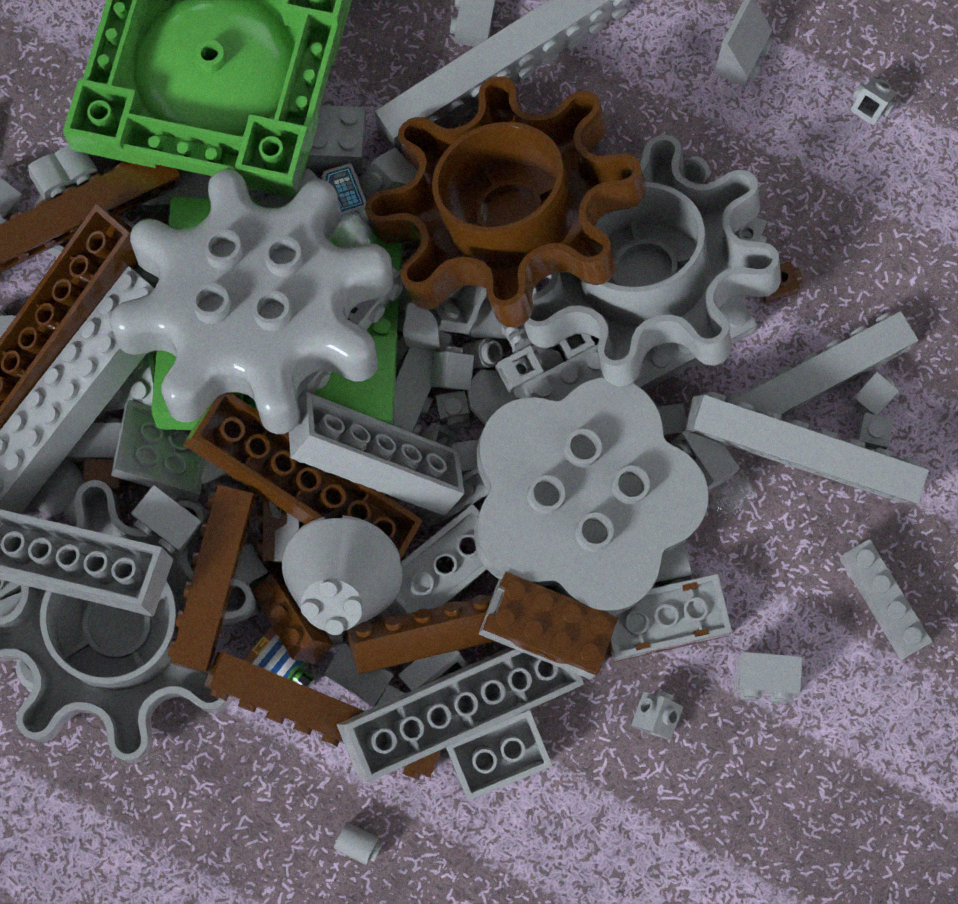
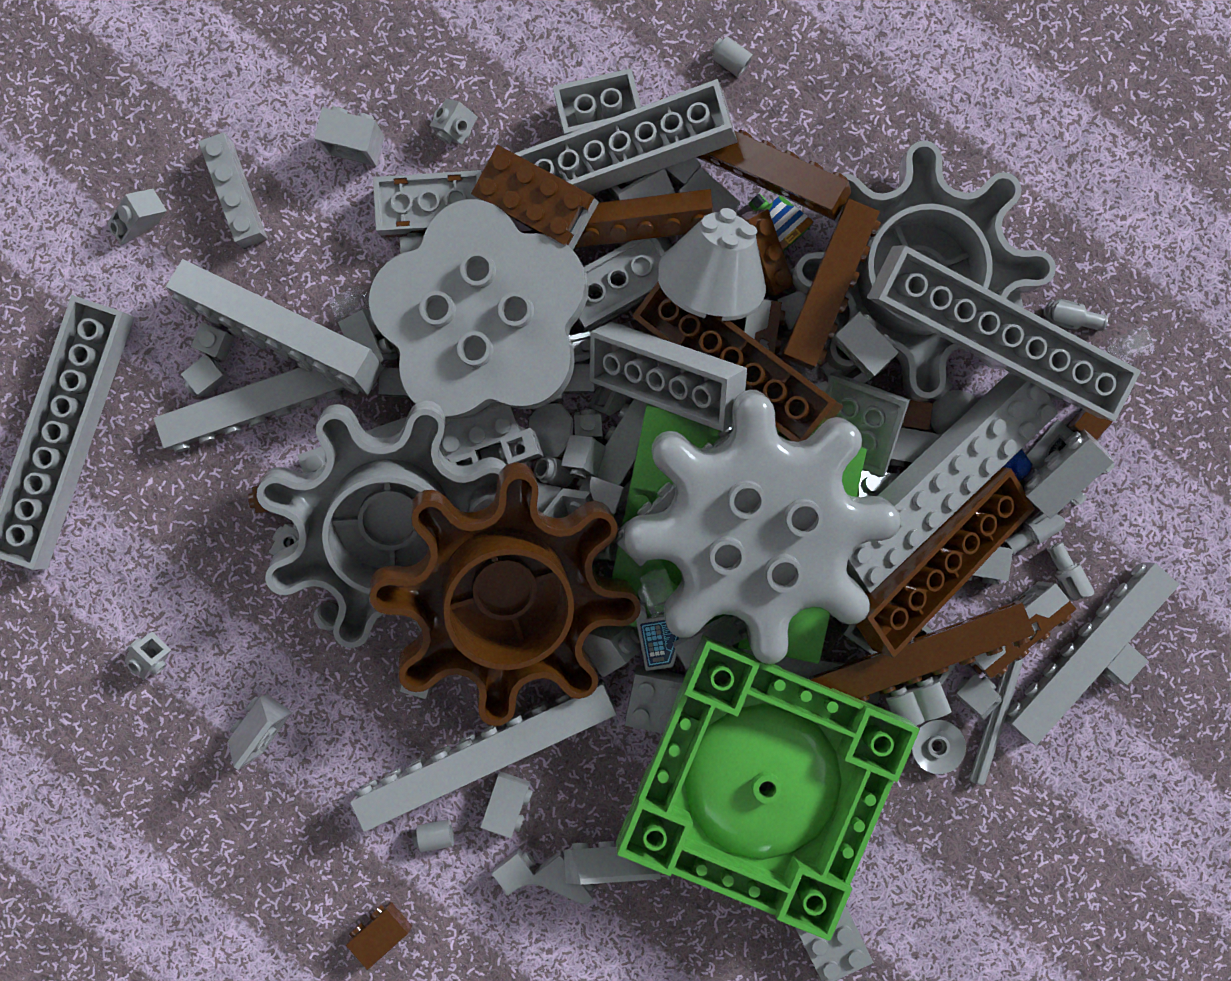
camera: 175 degrees left, 10 degrees up
(29, 128) = (950, 752): none -> light grey dish

